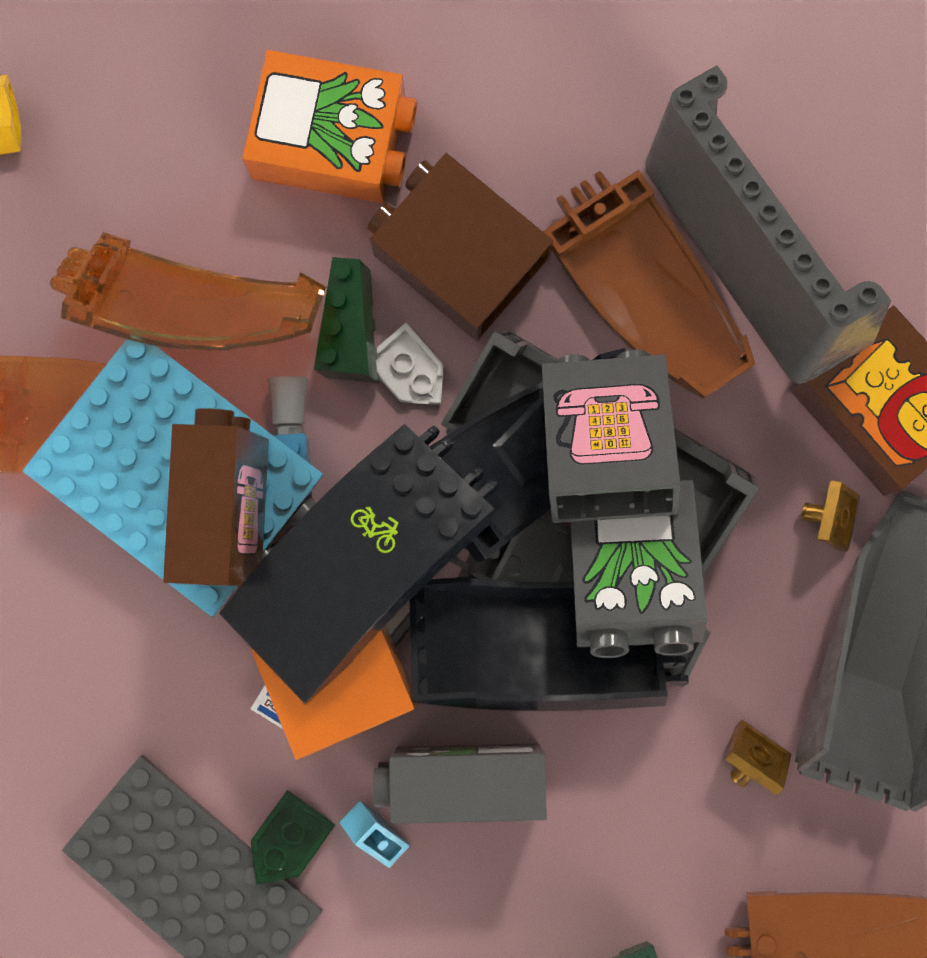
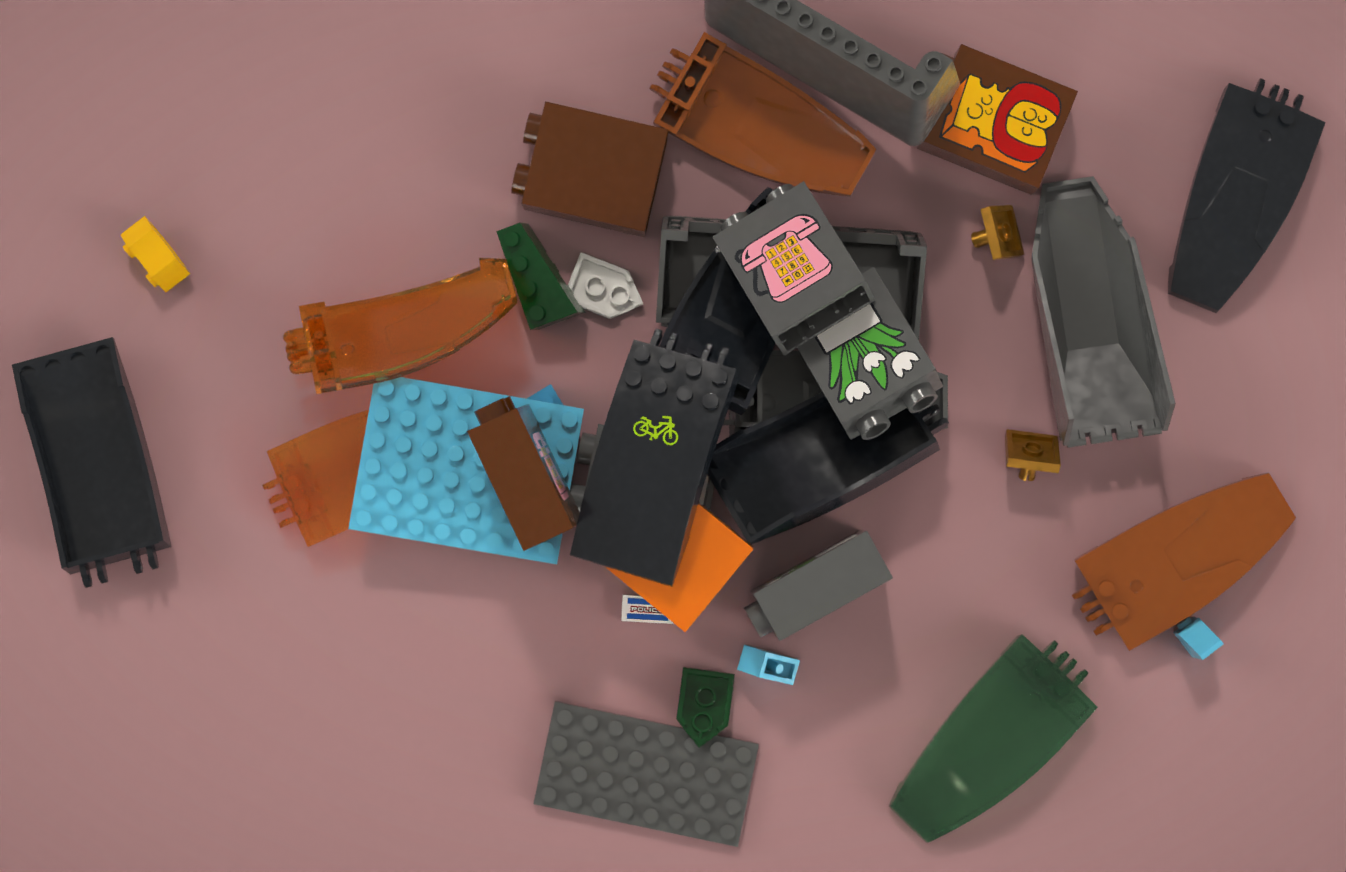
camera: 30 degrees left, 5 degrees up
(287, 403) = (522, 368): light grey plant -> none
(328, 127) = (436, 125): brick -> none

